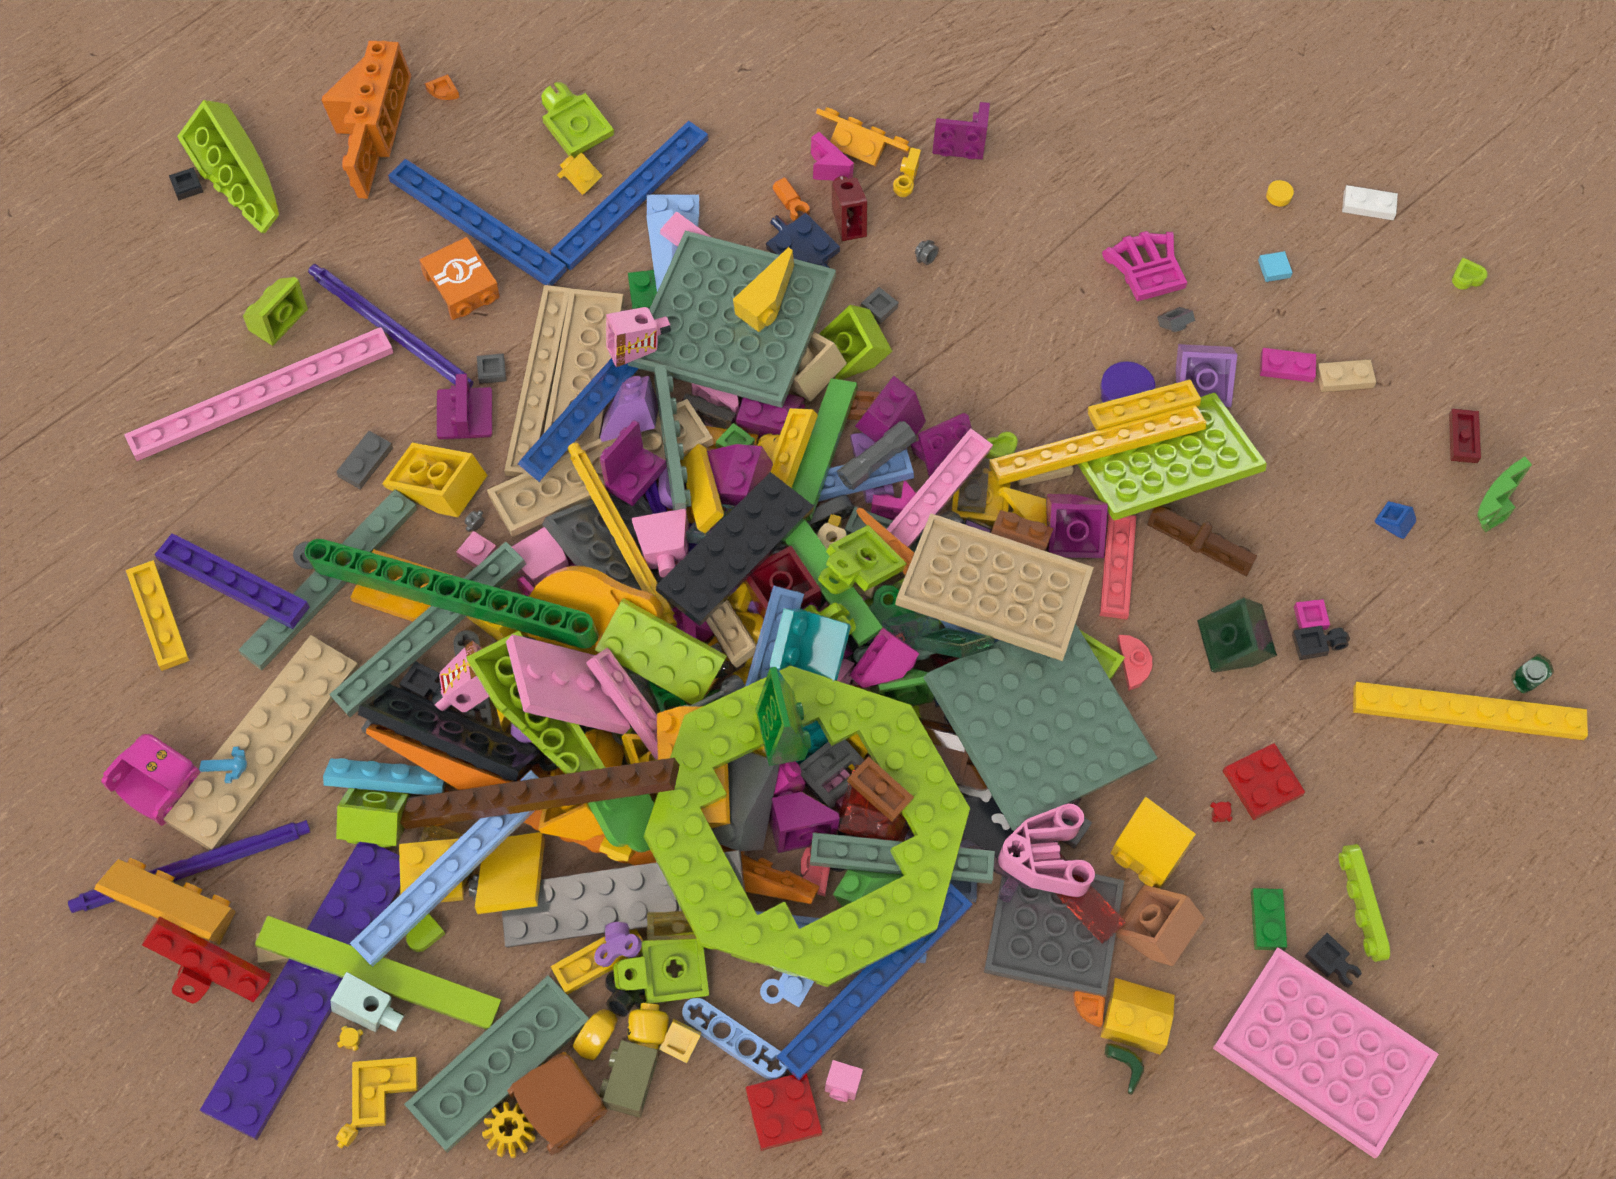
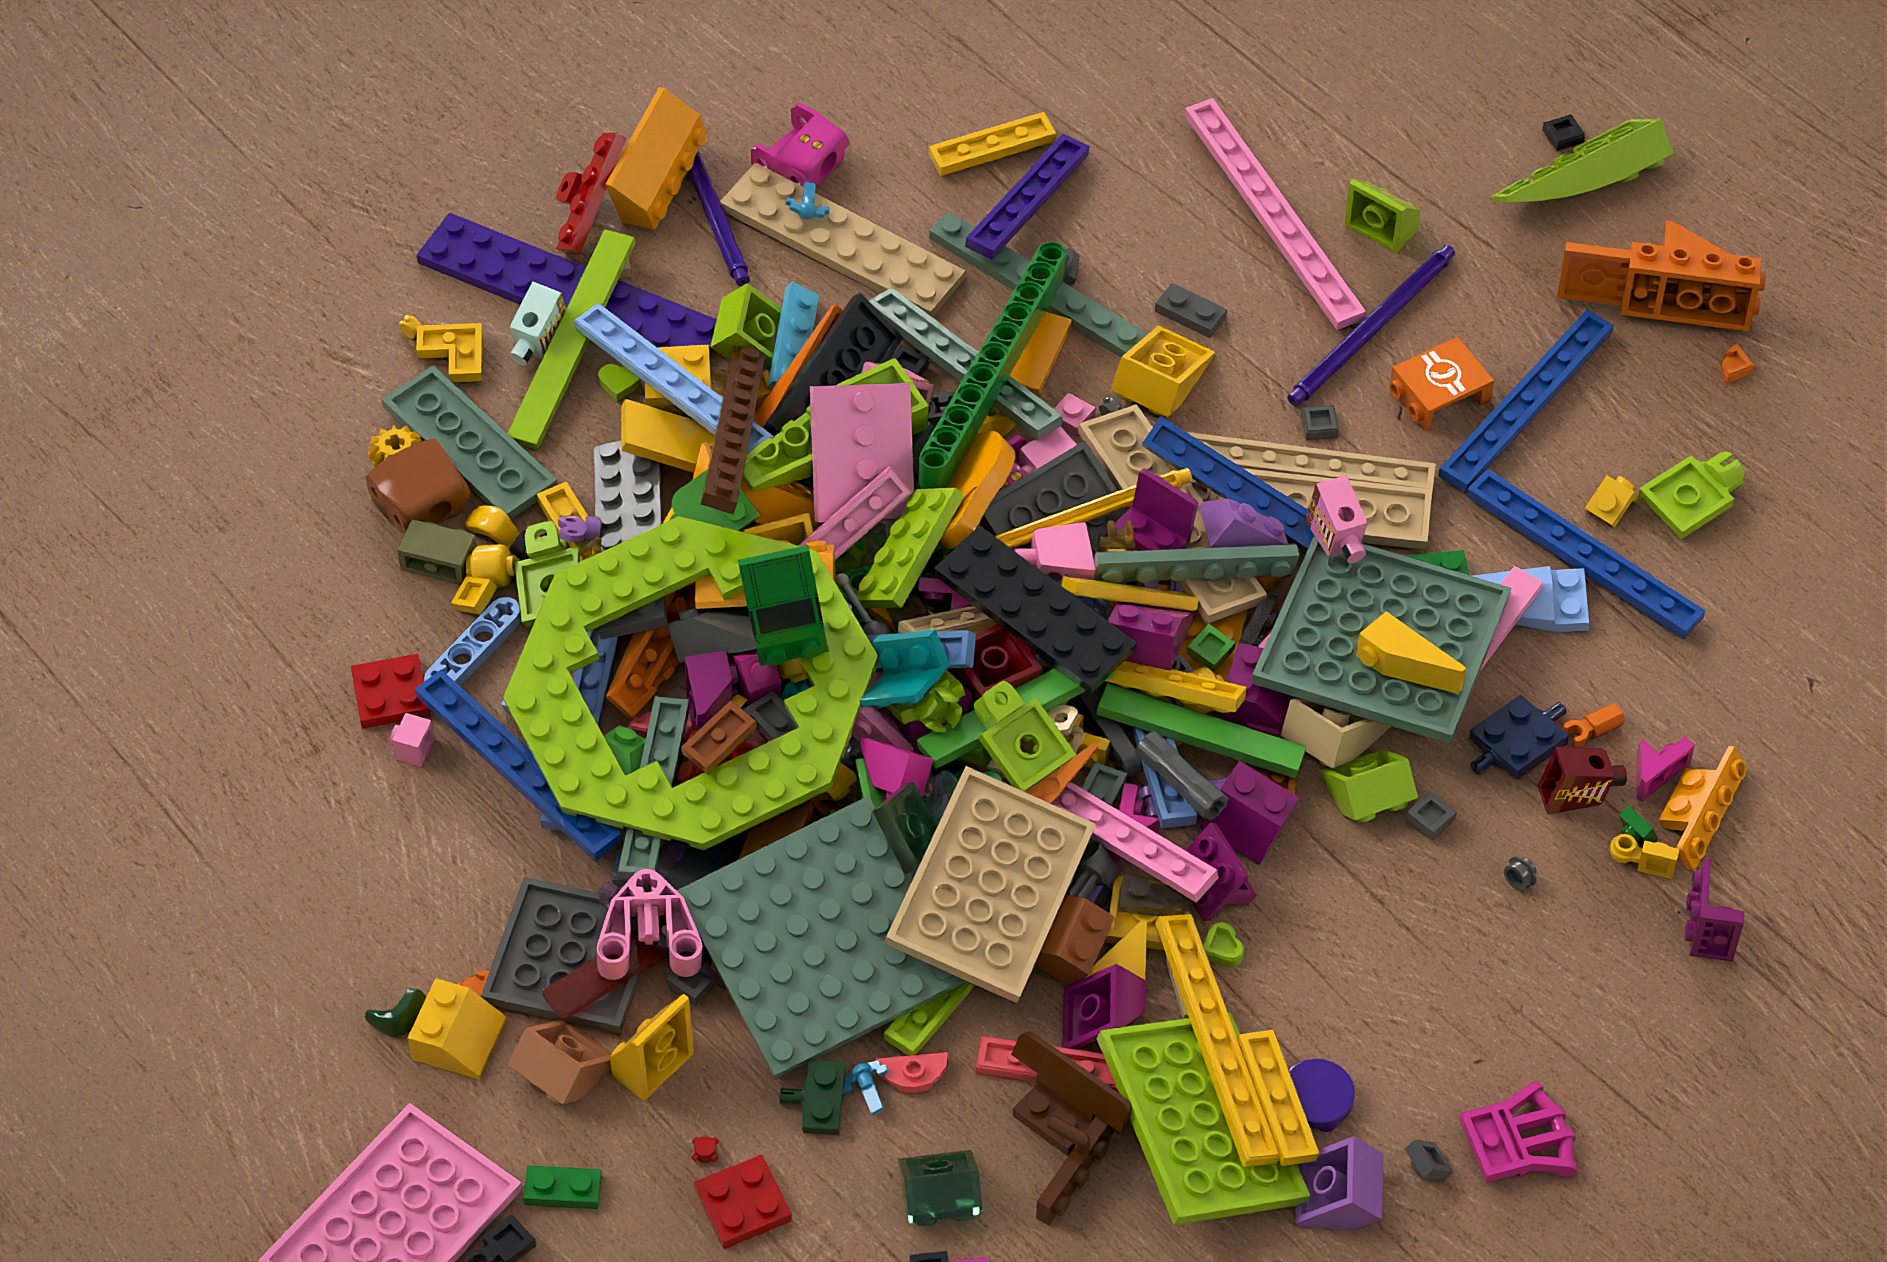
camera: 95 degrees right, 10 degrees down
(350, 1038) = (505, 326): yellow piece -> none
(464, 411) = (1255, 396): magenta bracket -> none
(651, 498) = (1118, 539): none -> clear yellow plate
(885, 177) = (1636, 826): none -> green plate
(1143, 696) = (863, 1075): none -> dark azure piece
(1158, 551) = (1064, 1091): none -> reddish brown plate
(1167, 727) = (820, 1097): none -> dark green plate

